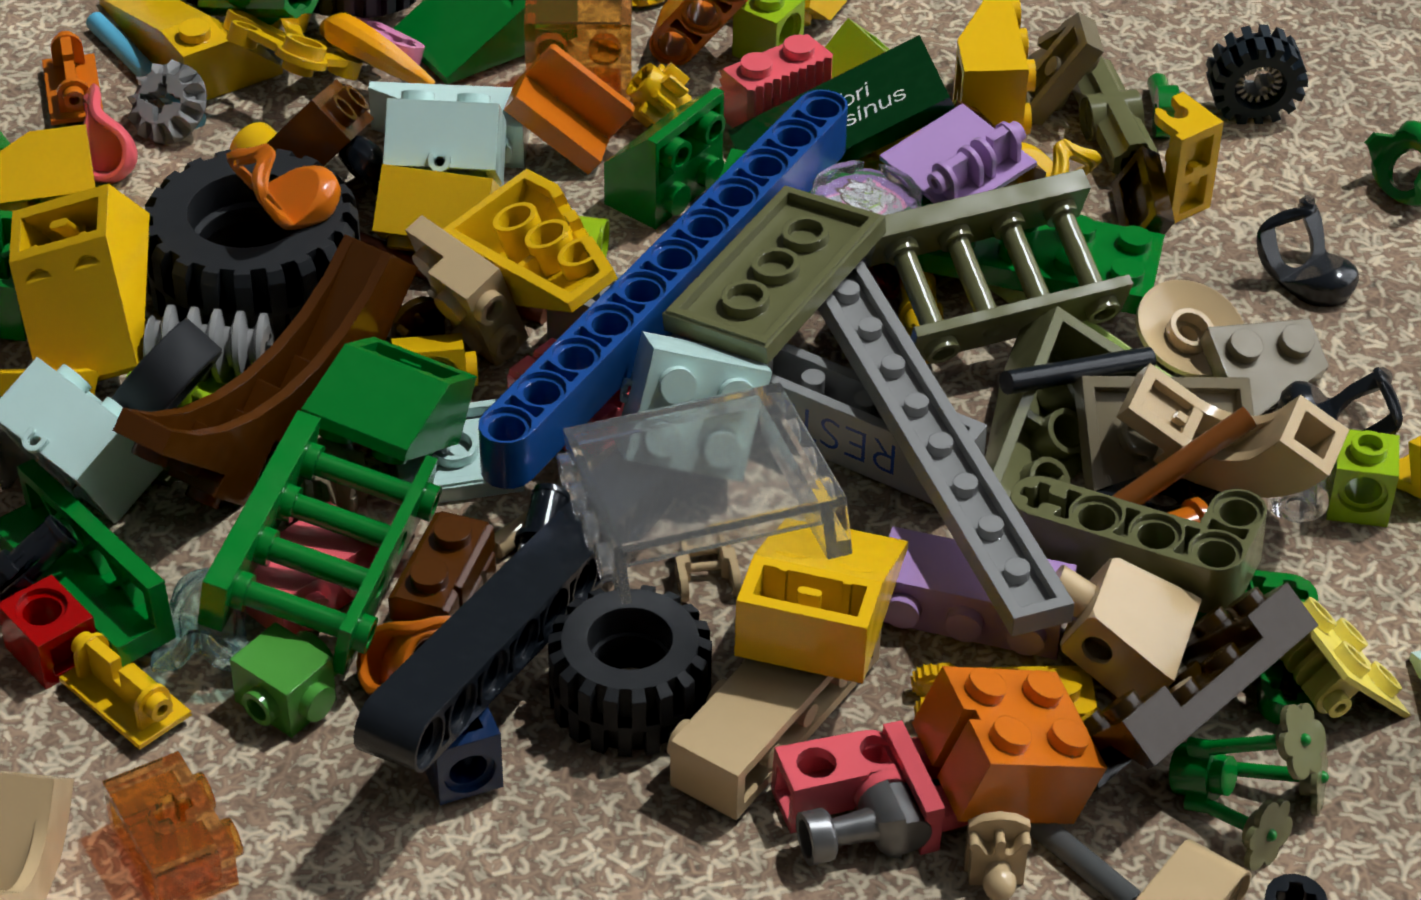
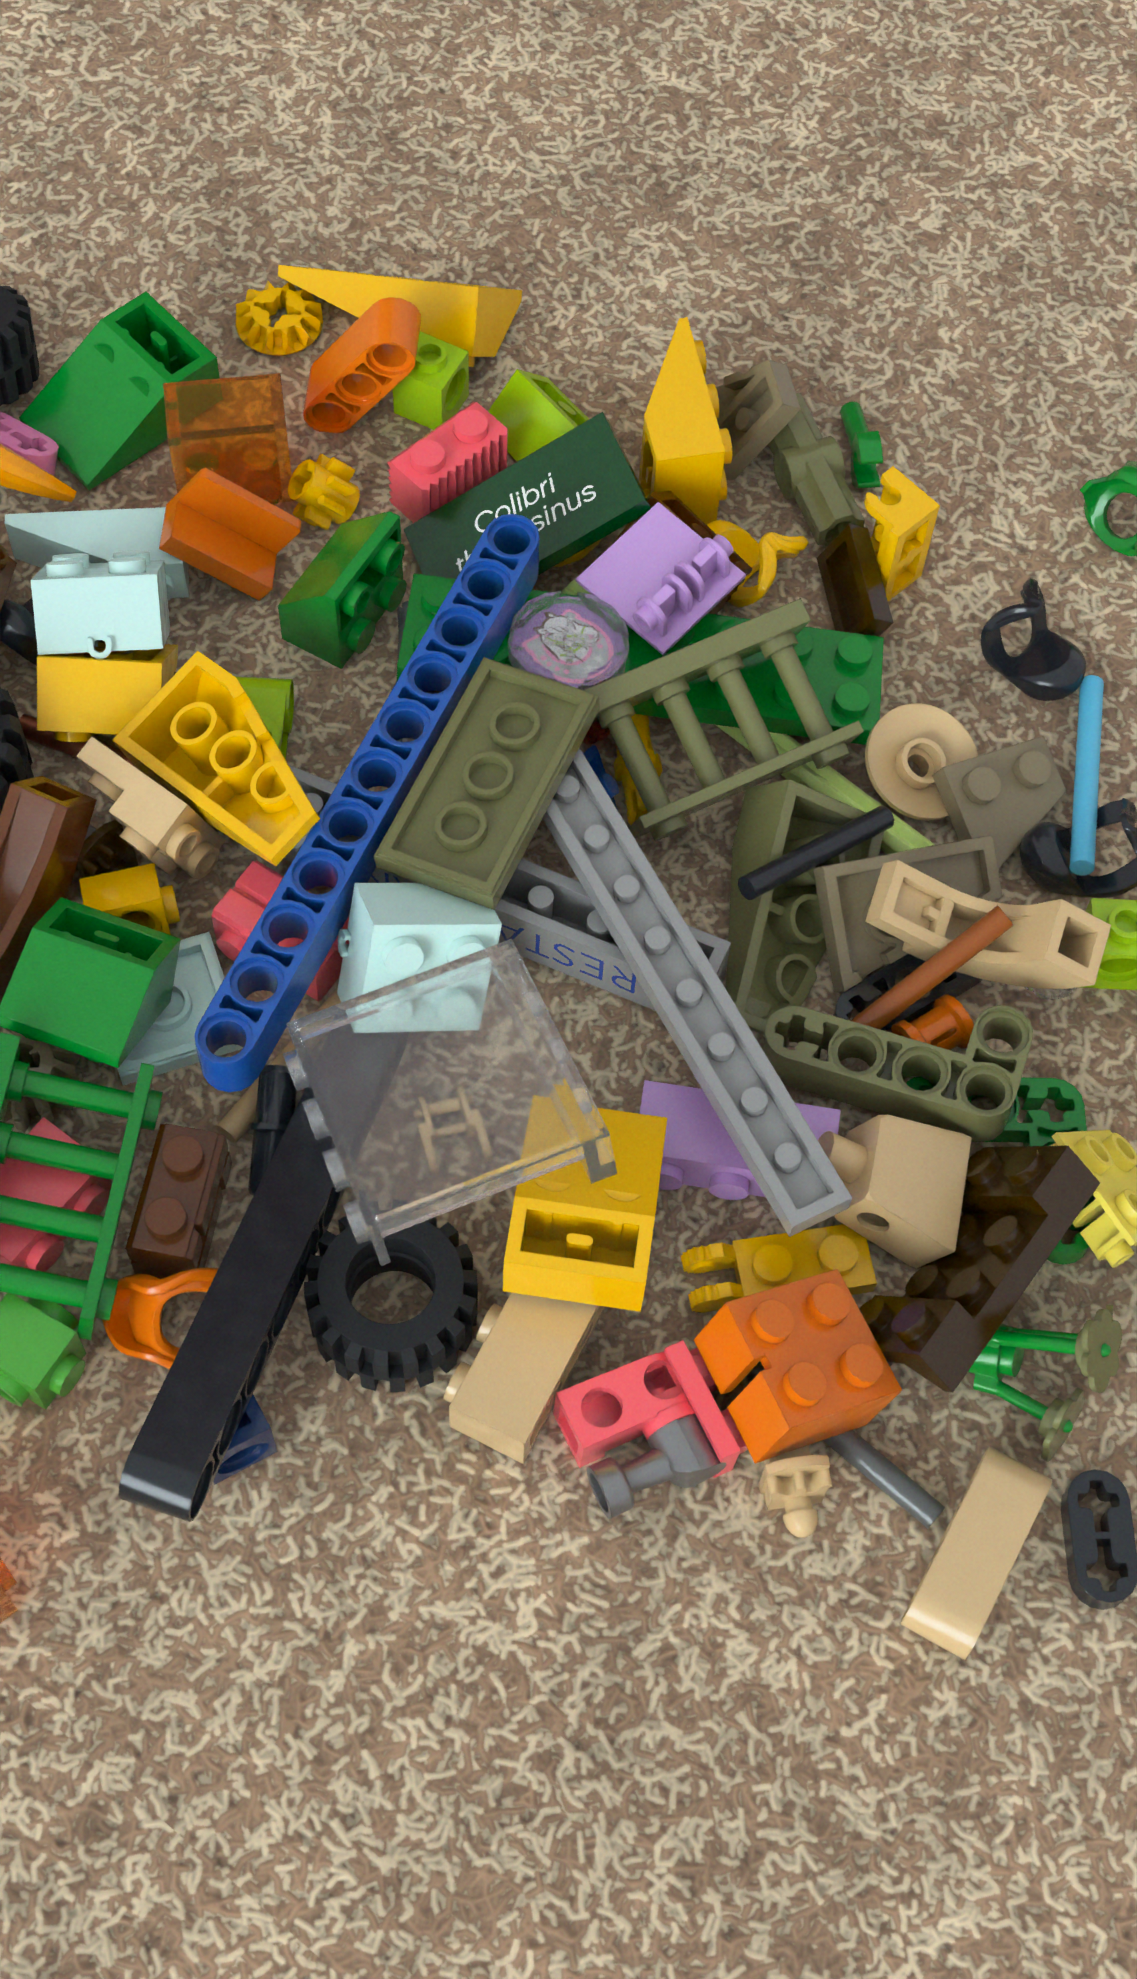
camera: 10 degrees left, 20 degrees up
(1268, 91) = (959, 406): black bush -> none
(1350, 353) = (1086, 776): none -> medium azure bar

